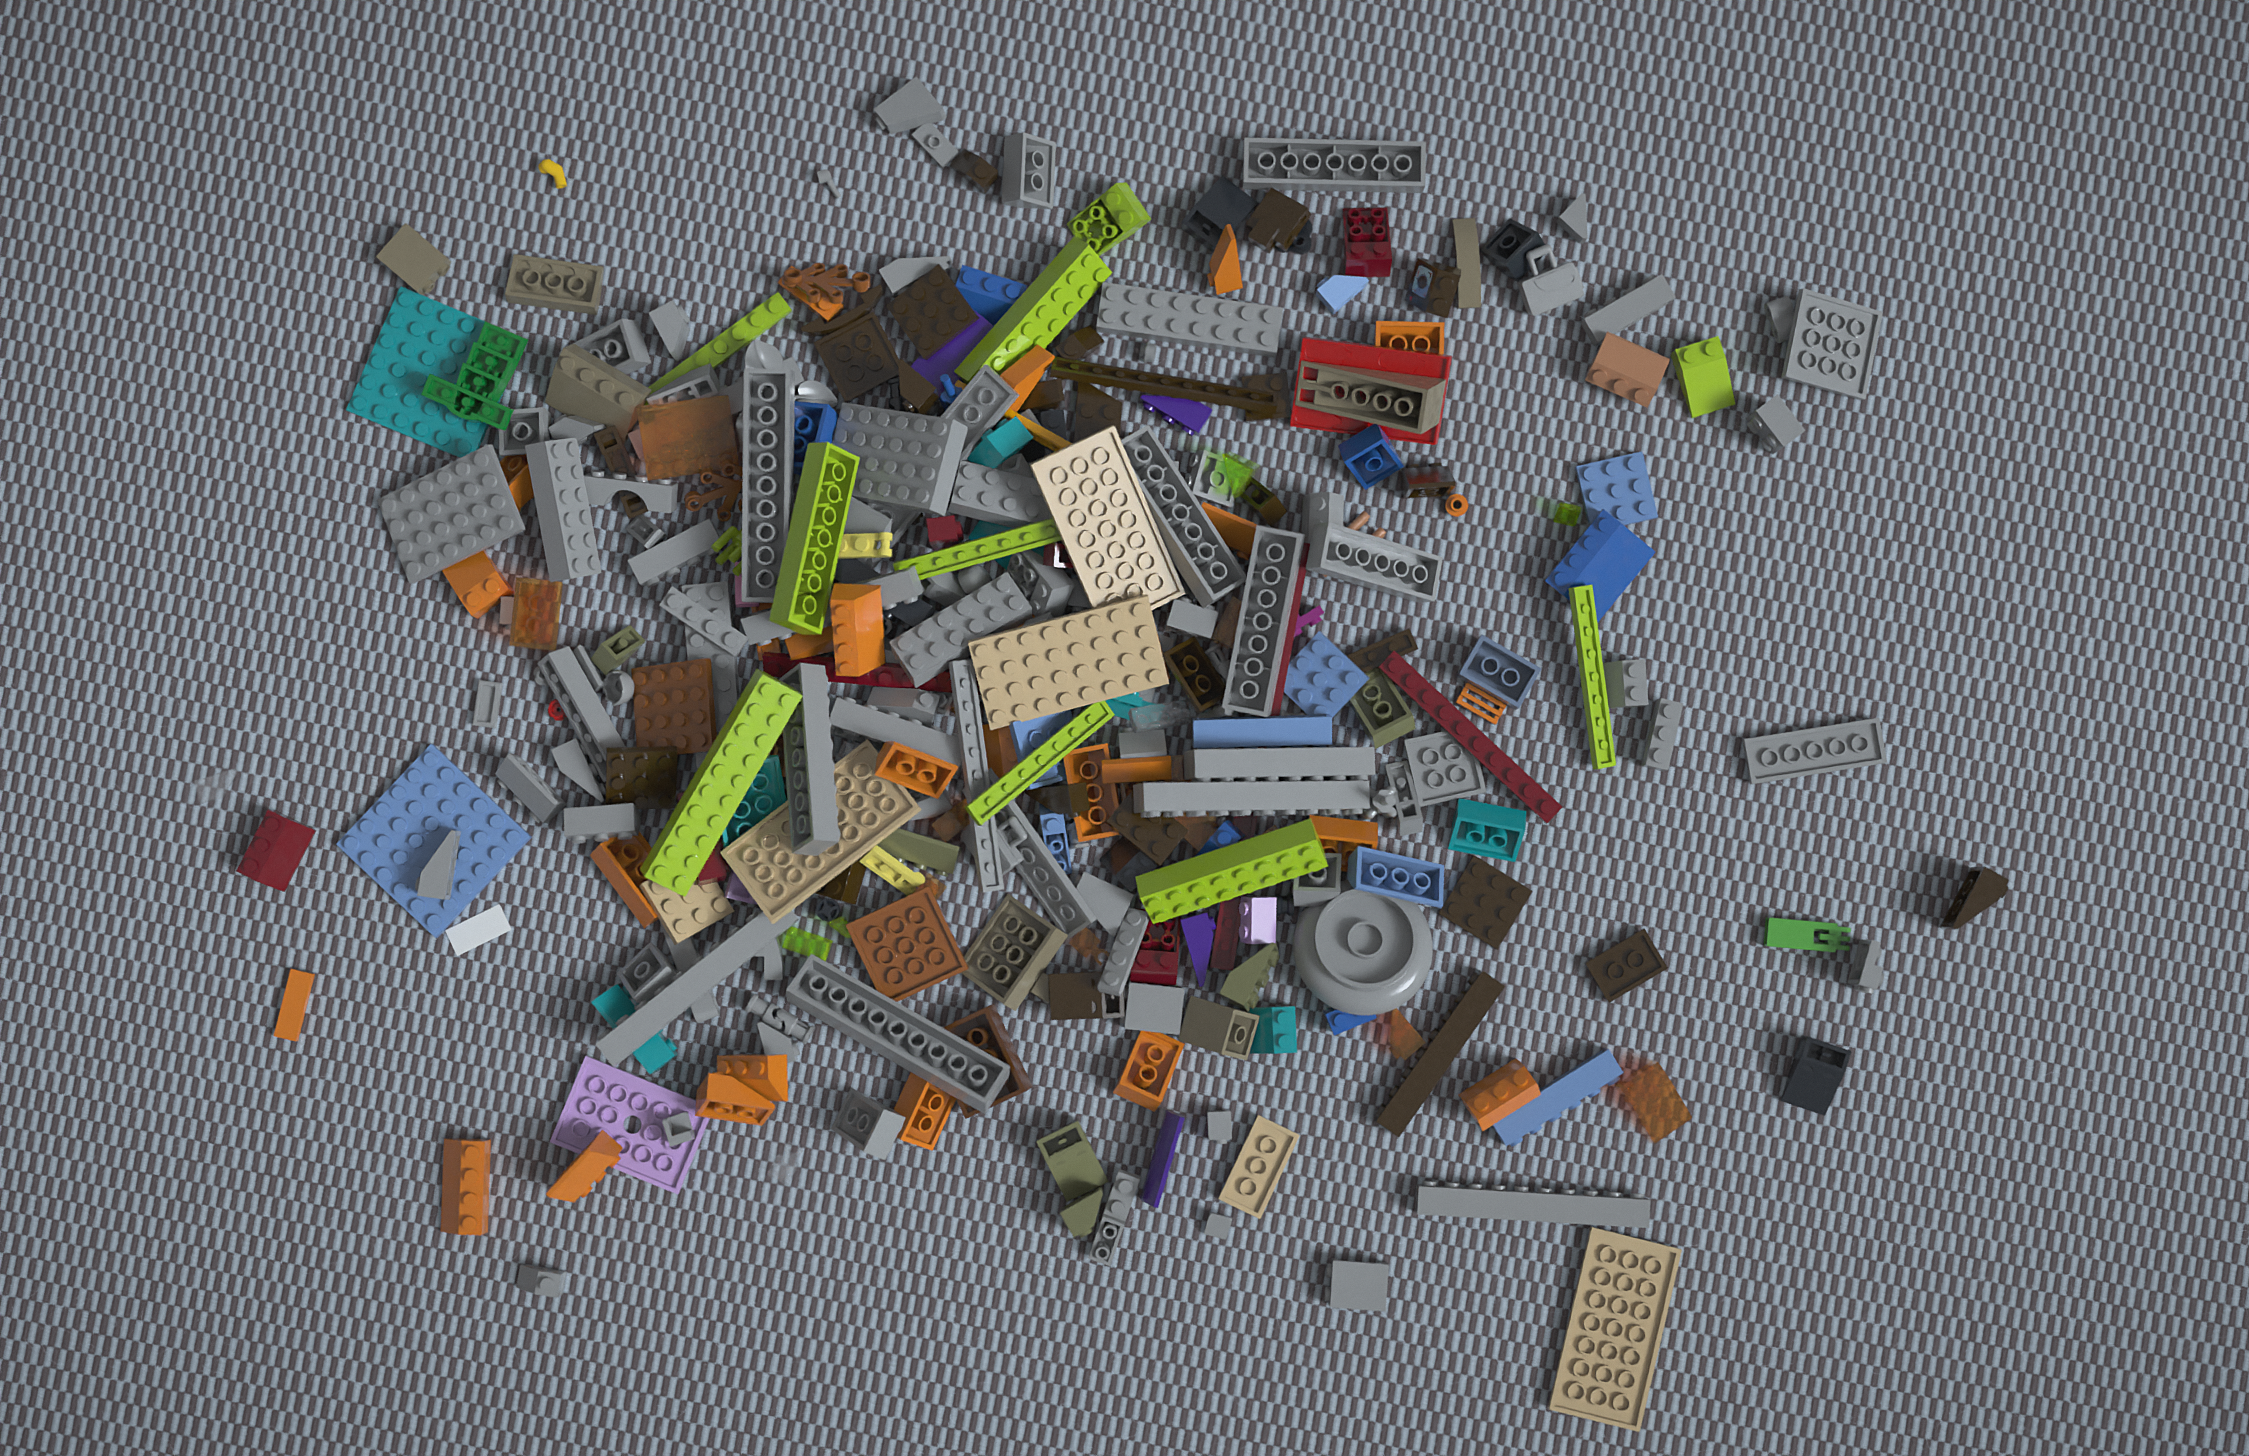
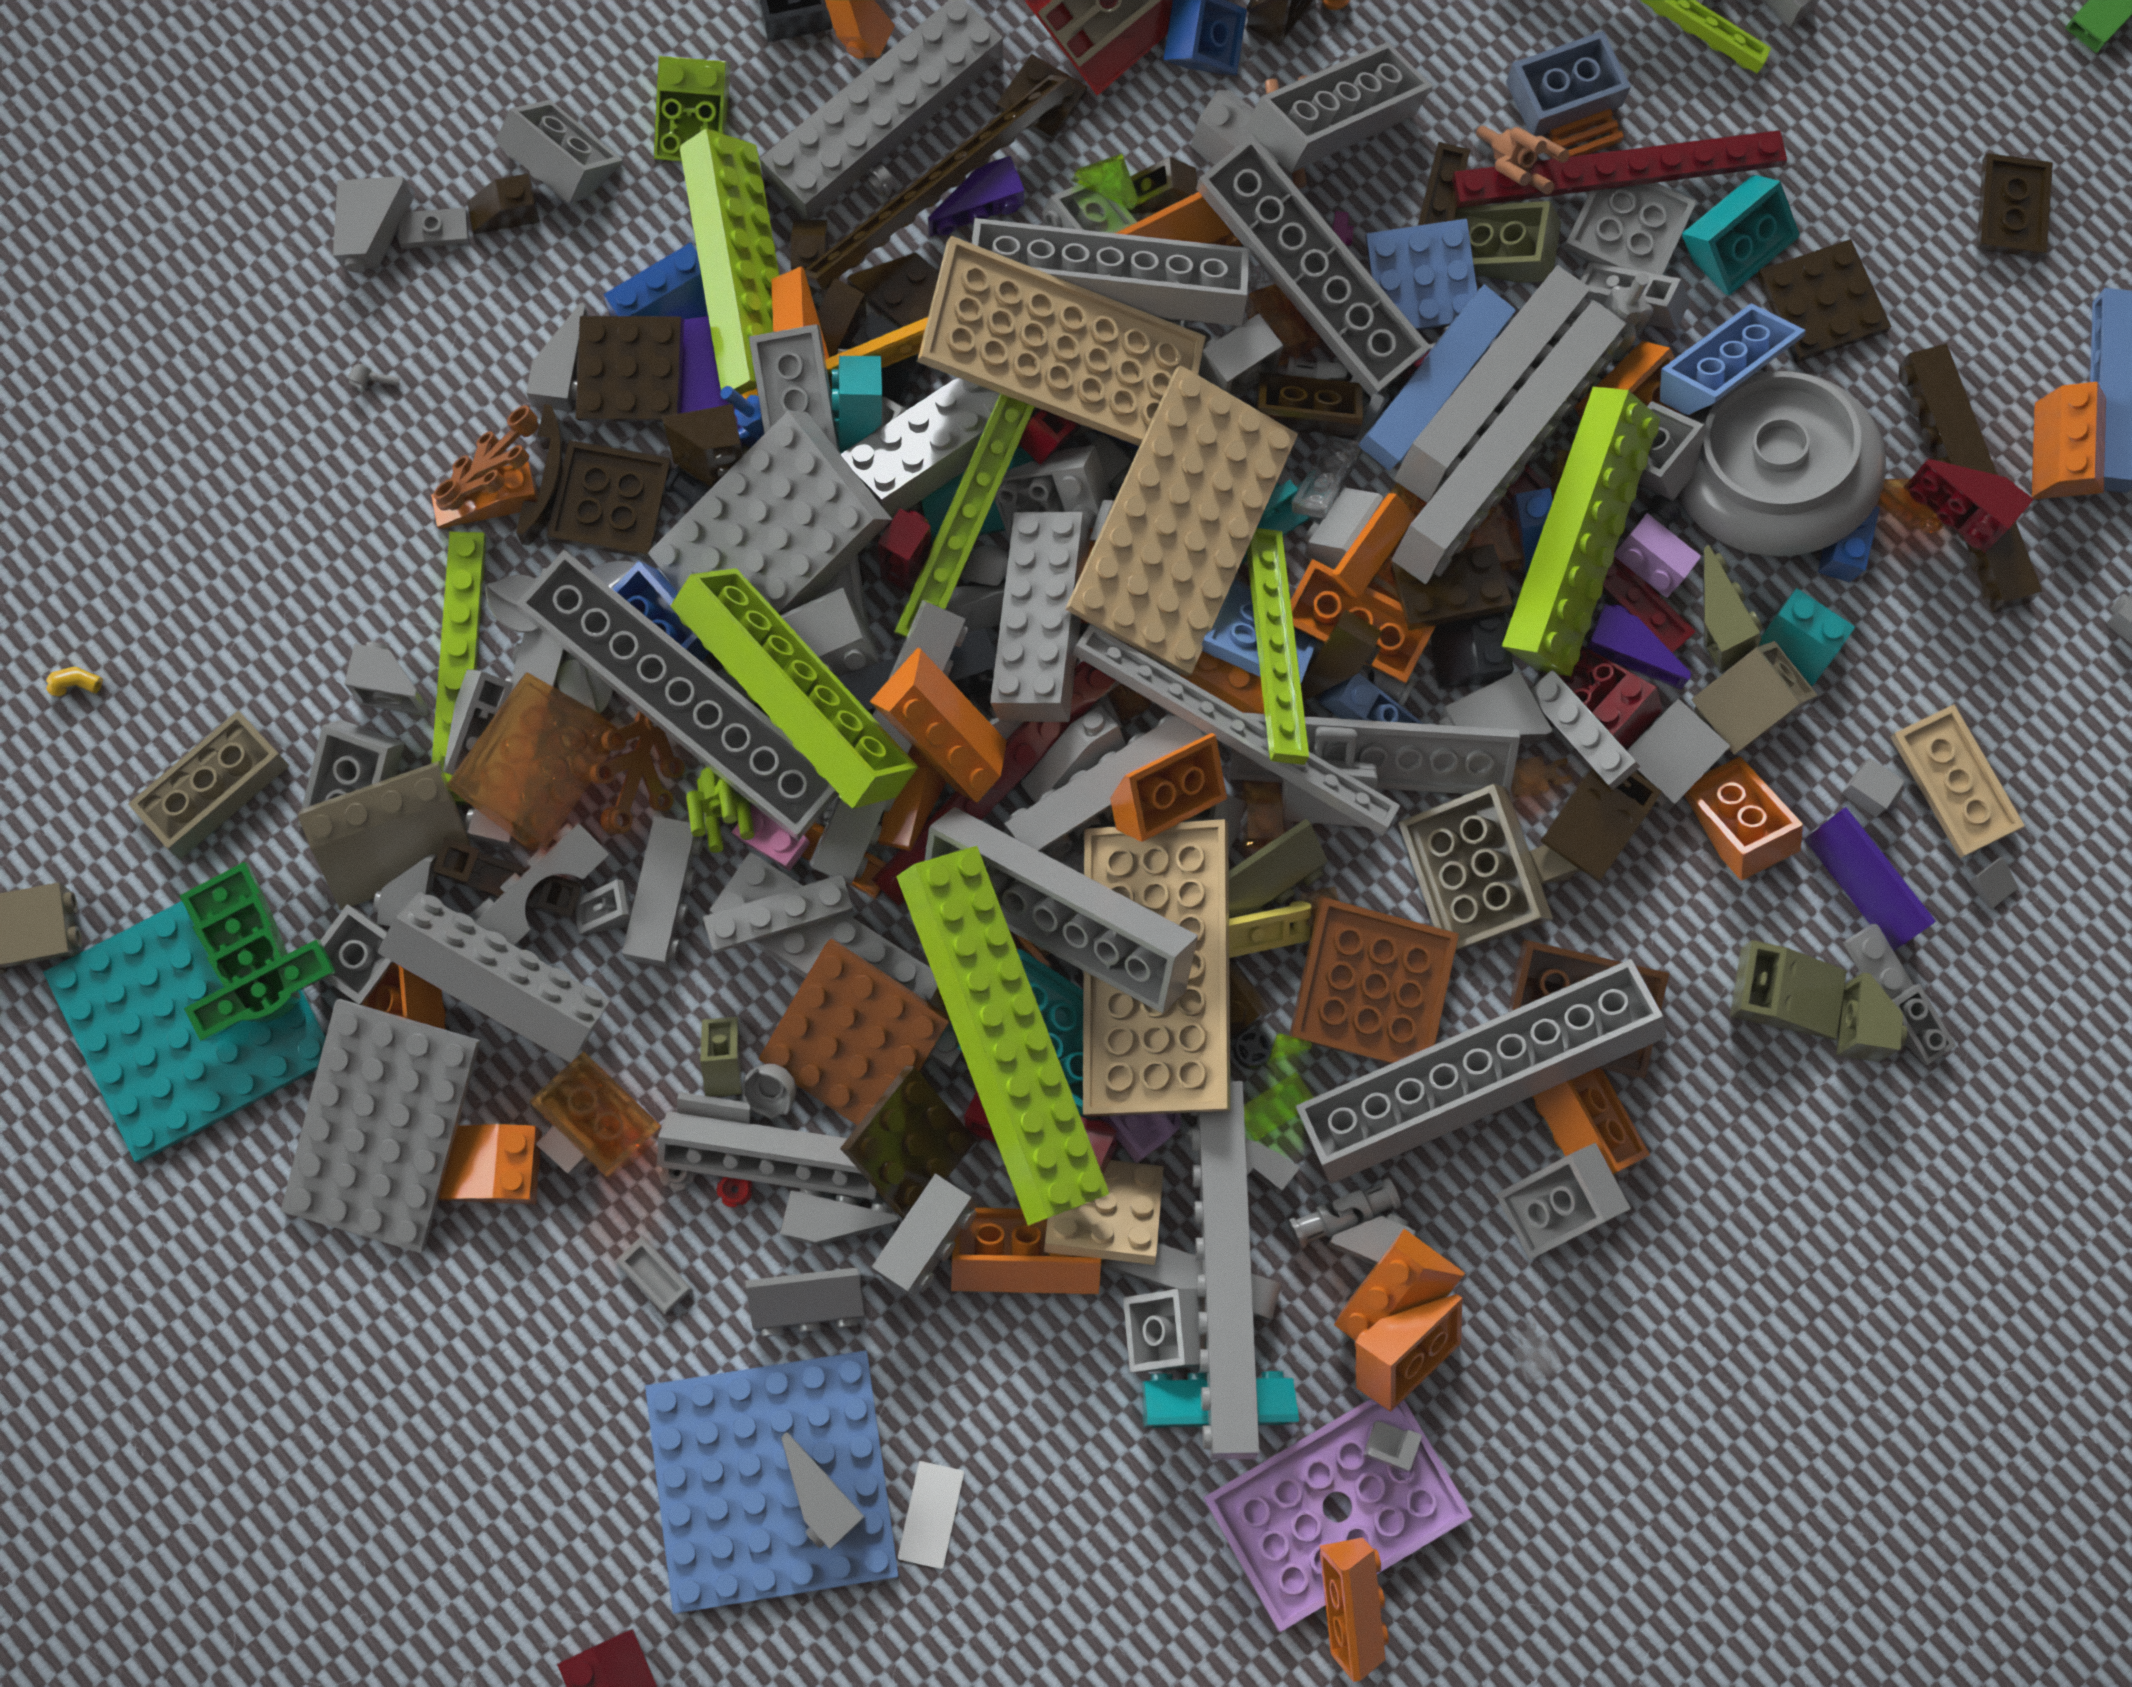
camera: 55 degrees left, 10 degrees down
(865, 545) = (849, 641): light yellow plate -> none
(1413, 1071) = (1969, 500): none -> dark red slope
(1430, 679) = (1518, 151): none -> nougat plant

